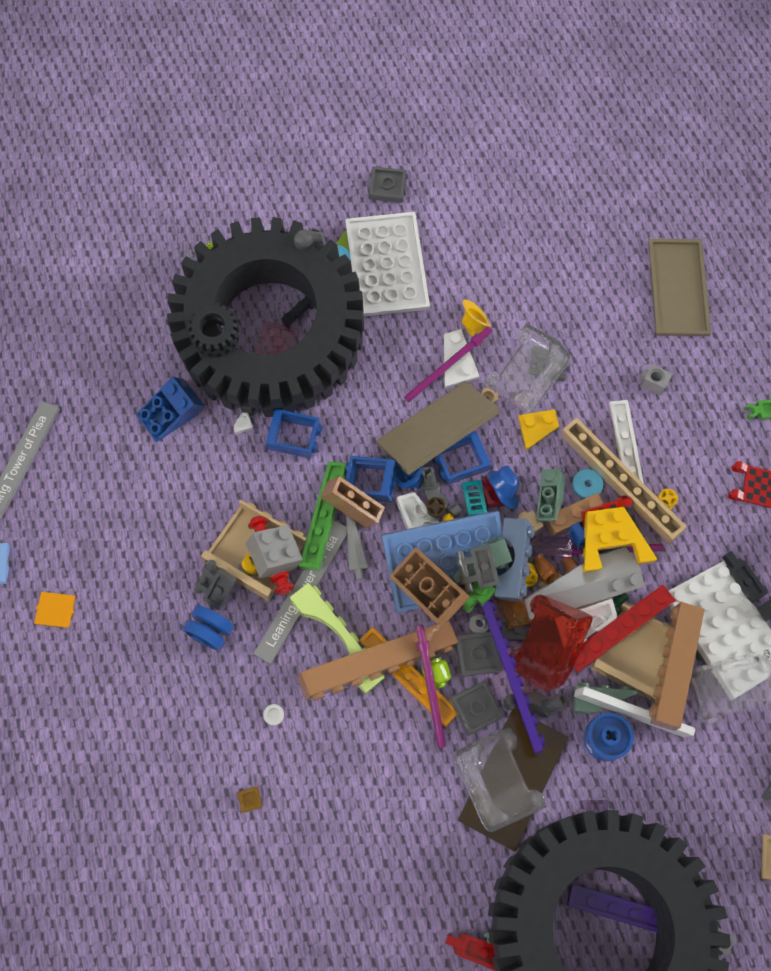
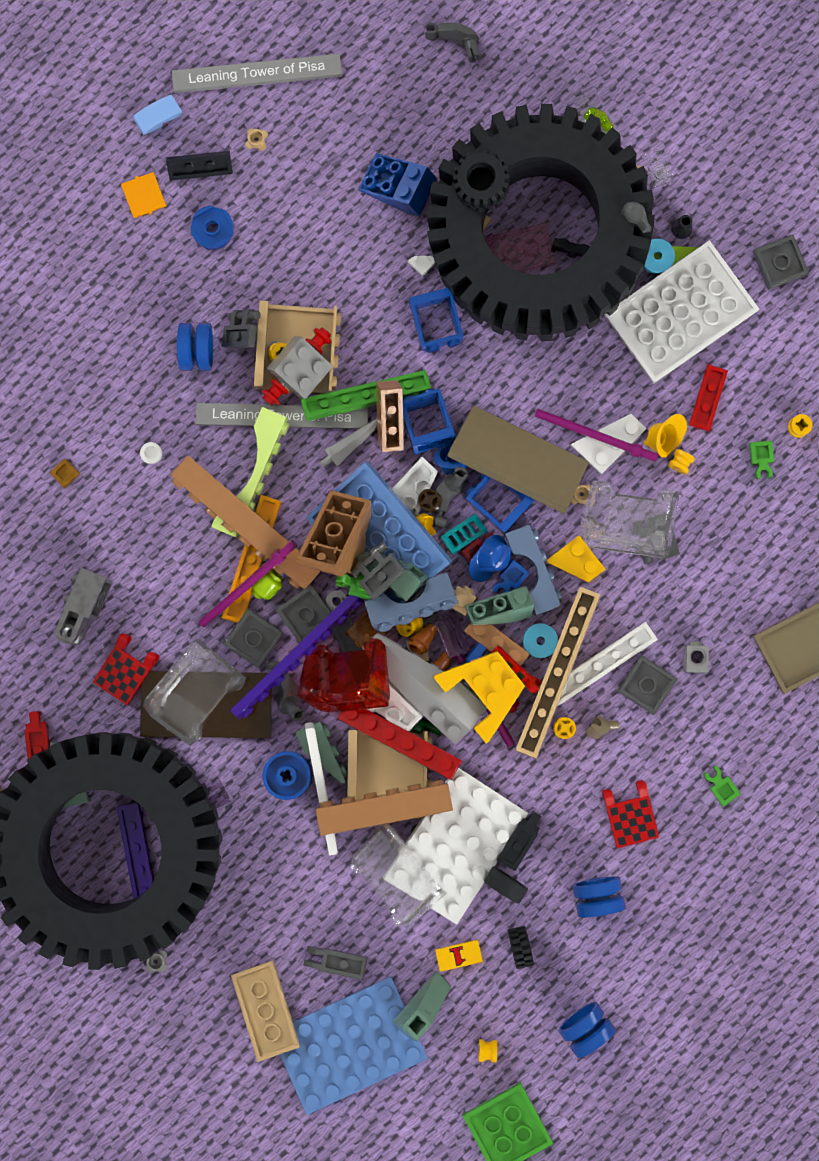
camera: 65 degrees right, 15 degrees up
(60, 551) = (199, 165): none -> black plate
(67, 491) = (256, 133): none -> tan plate
(82, 309) = (459, 33): none -> dark grey arm
(109, 559) = (223, 232): none -> blue plate
(323, 226) = (682, 231): none -> black cone
(375, 839) = (82, 605): none -> flat silver brick
(451, 838) = (123, 673): none -> red flag
(460, 278) = (708, 397): none -> red tile
(499, 317) = (681, 461): none -> yellow wheel
(510, 455) = (524, 544): none -> sand blue arch
(517, 232) = (795, 427): none -> yellow wheel
(523, 263) = (761, 455): none -> bright green plate
(527, 479) = (512, 576): none -> blue plate
(659, 424) = (647, 685): none -> dark grey plate
(678, 472) = (601, 727): none -> dark tan piece

